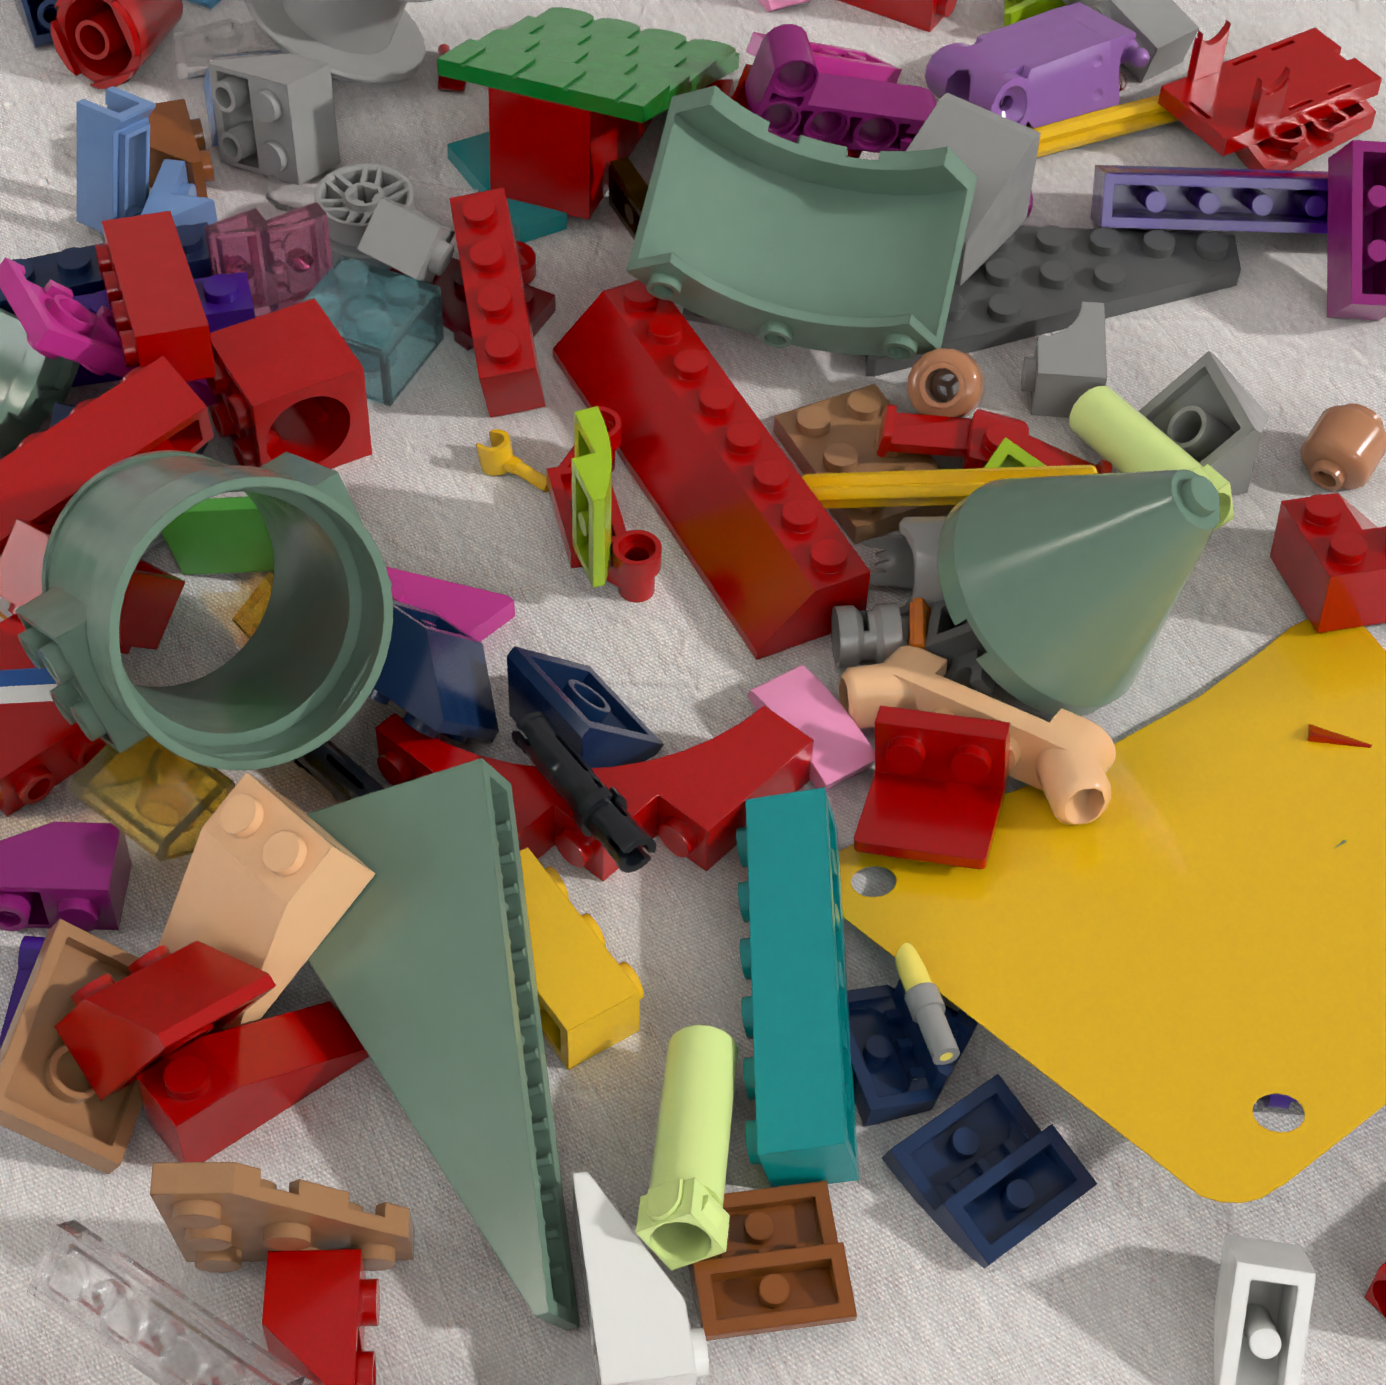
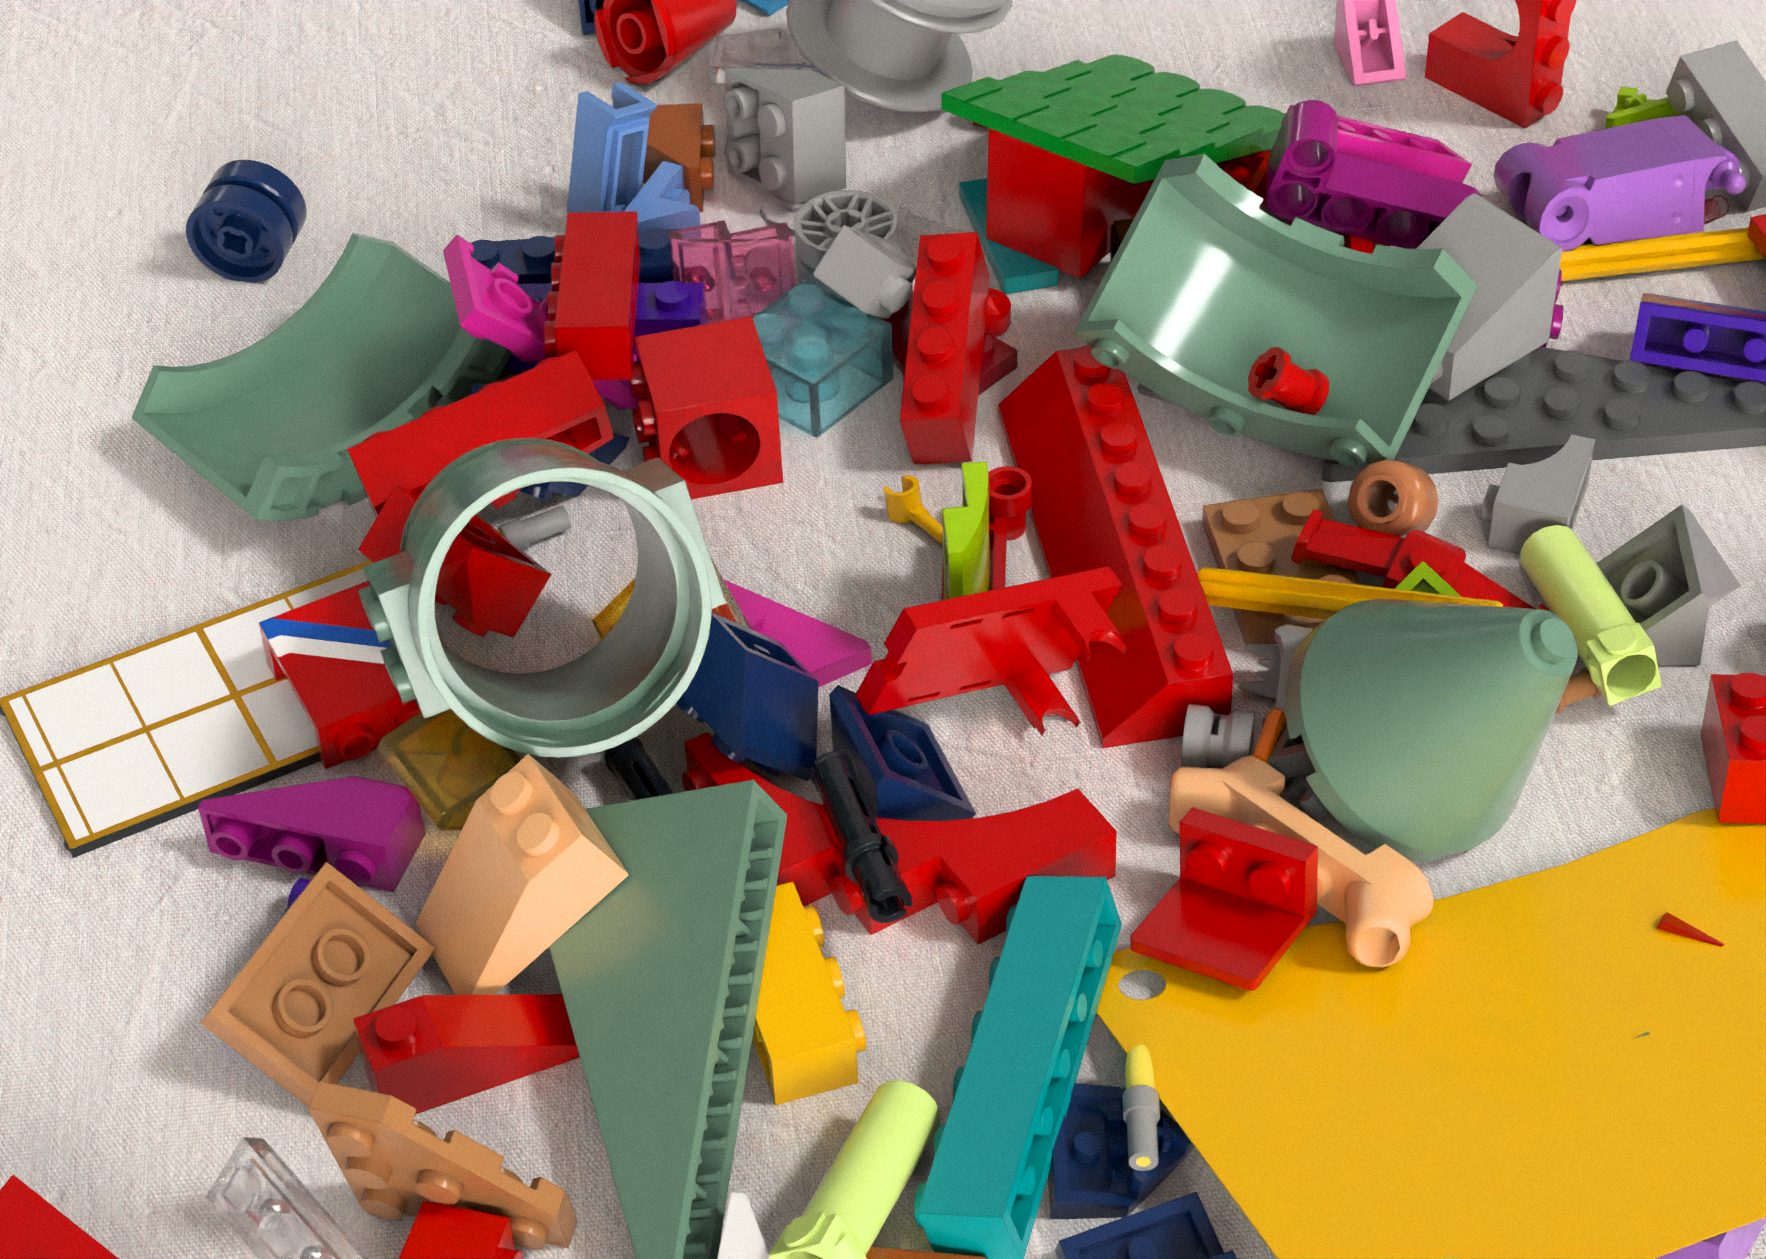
camera: 20 degrees right, 5 degrees down
(156, 1011) = (387, 962): red slope -> none
(220, 538) = (591, 533): bright green slope -> none
(652, 578) = (995, 640): none -> red piece
(807, 704) = (1145, 833): bright pink slope -> none
(821, 288) = (1286, 383): none -> red bush

